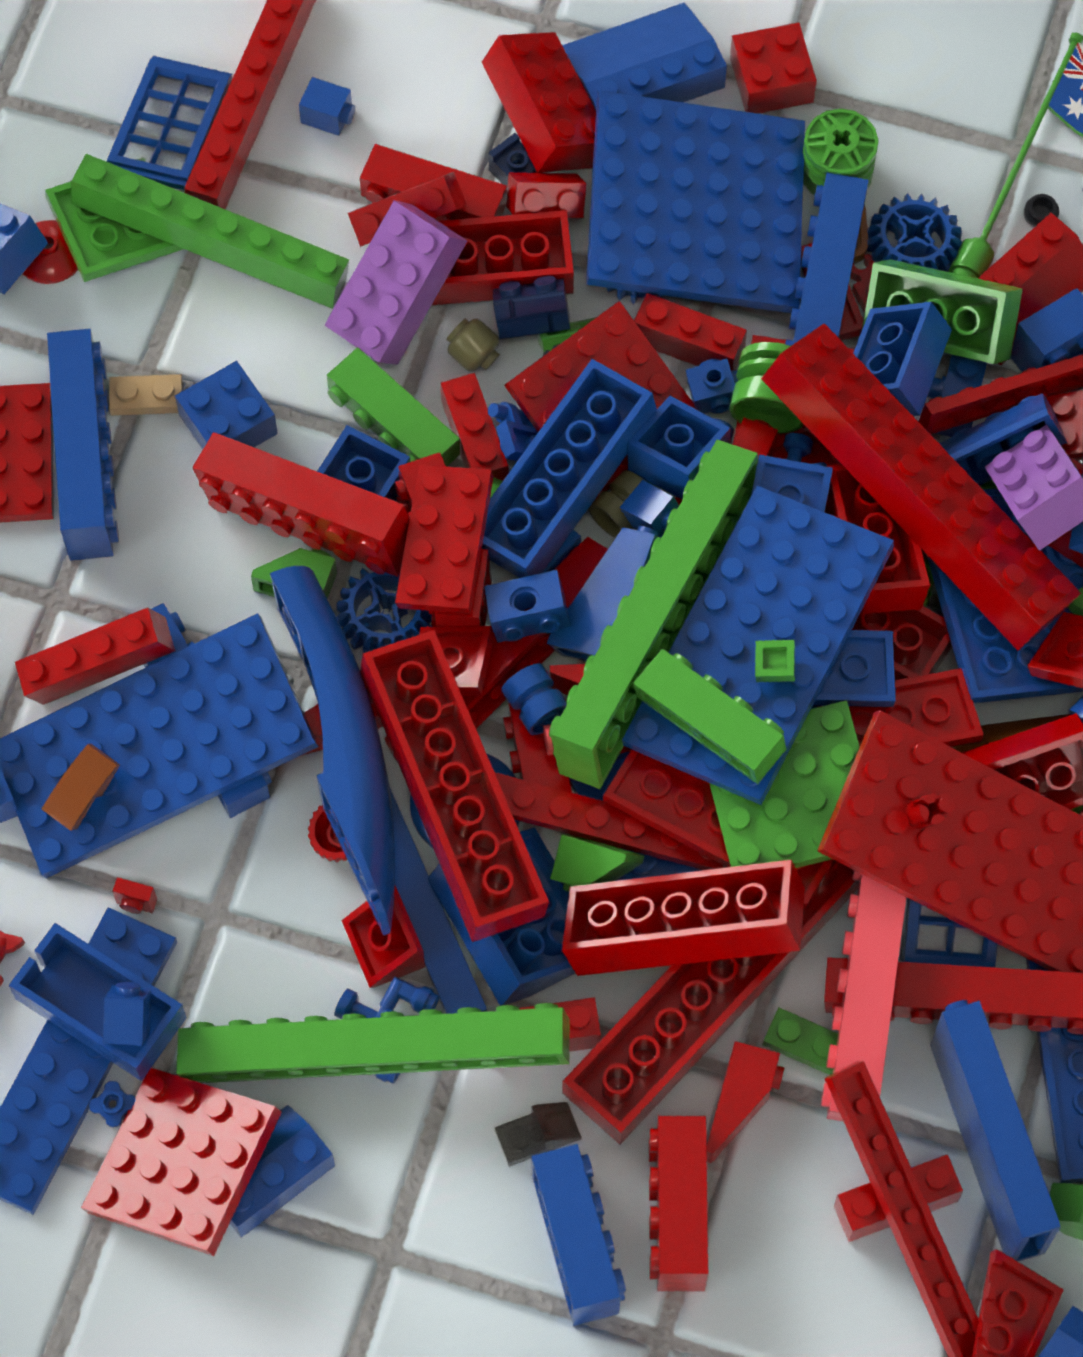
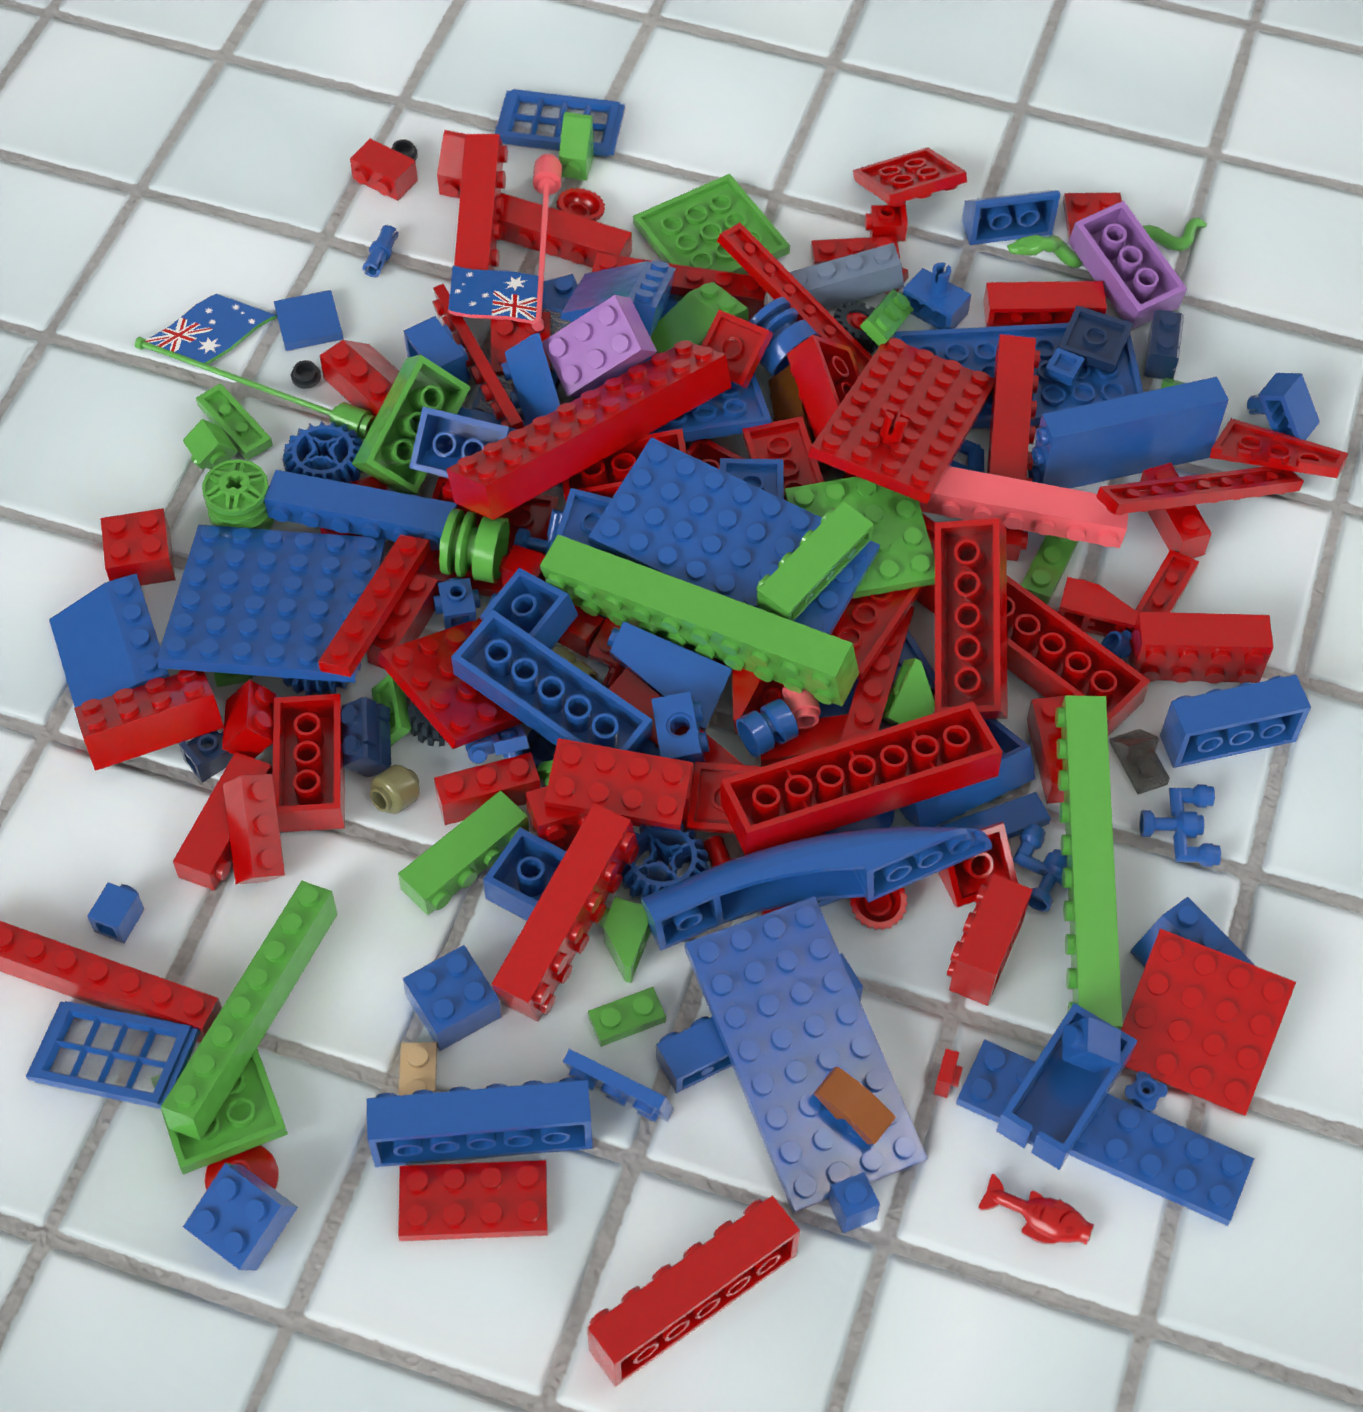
camera: 90 degrees left, 10 degrees down
(95, 656) = (715, 1100): red brick -> none
(117, 566) = (618, 1087): none -> blue plate
(211, 585) = (627, 1016): none -> bright green plate
(282, 937) = (988, 938): none -> red brick
(395, 283) = (338, 833): medium lavender brick -> none
(444, 1174) = (1185, 824): none -> blue piece
(649, 507) = (587, 637): blue brick -> none
(681, 291) = (374, 606): none -> red plate
(695, 1107) = (1118, 643): none -> blue plate
(775, 661) = (763, 518): bright green plate -> none
(778, 1180) = (1168, 583): none -> red plate
(918, 121) = (209, 445): none -> bright green brick
(963, 144) = (235, 421): none -> bright green plate

